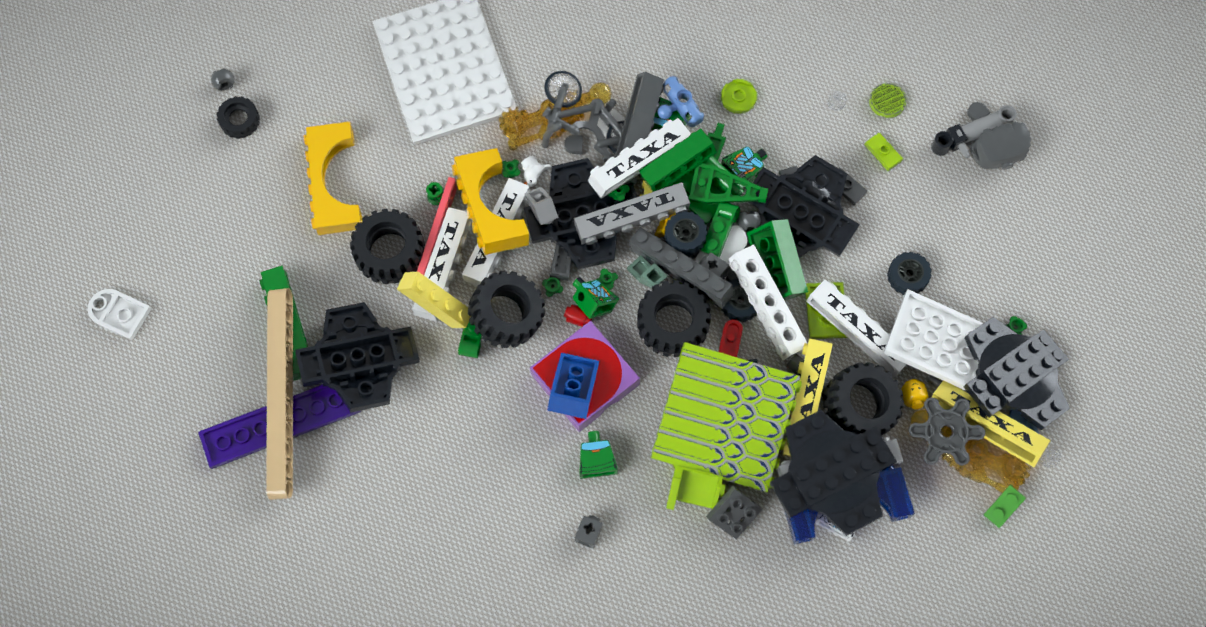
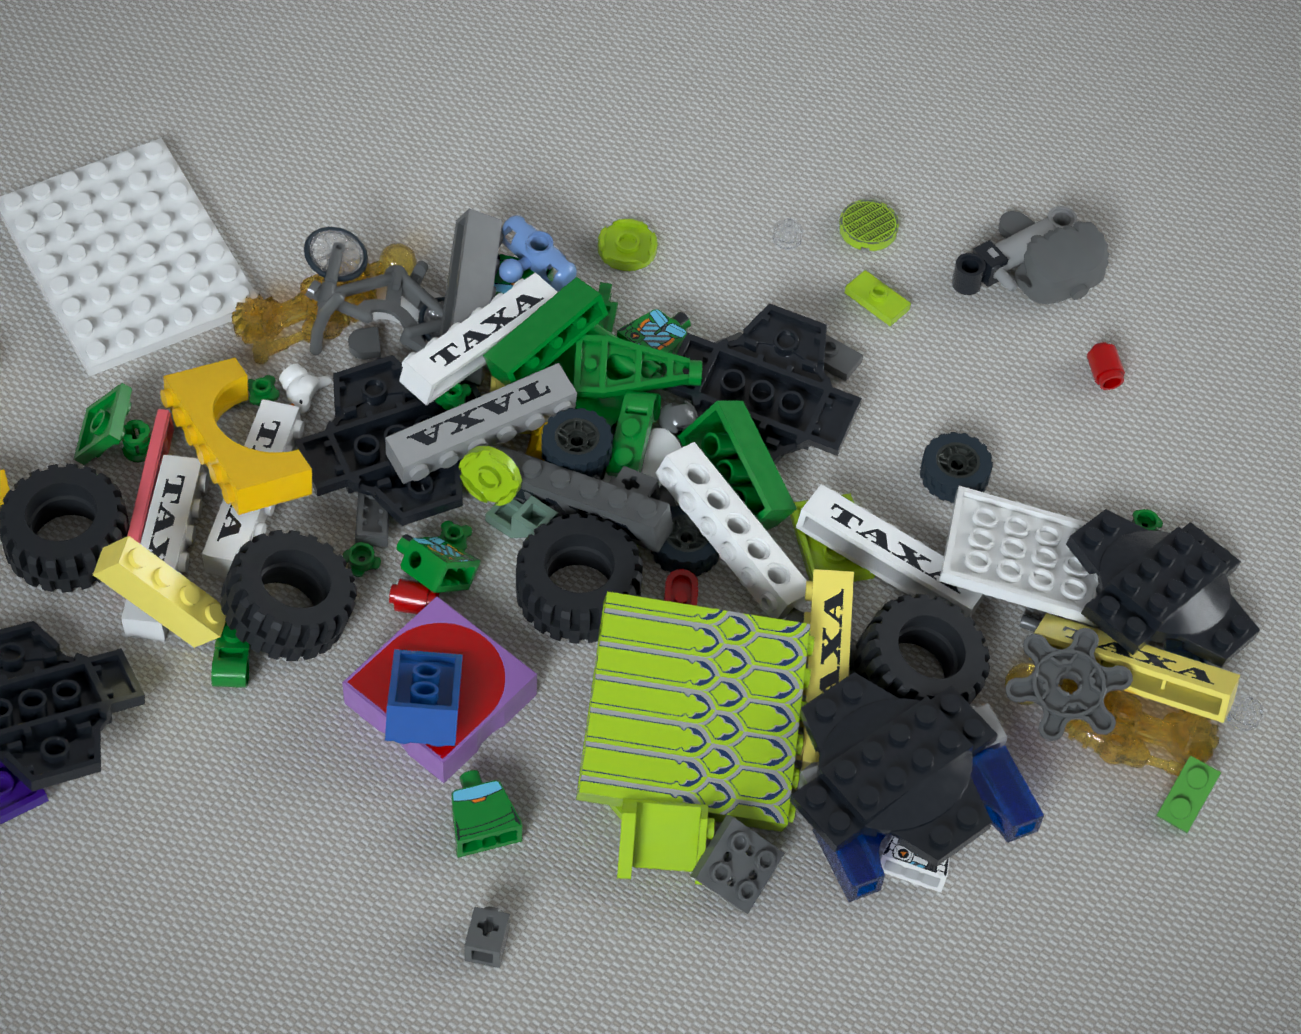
camera: 15 degrees left, 15 degrees down
(417, 182) = (103, 424): none -> green plate
(541, 205) = (326, 430): light grey slope -> none
(632, 247) = (490, 475): none -> lime tile
(914, 394) = (1004, 643): yellow head -> none
(1014, 217) = (1106, 366): none -> red brick

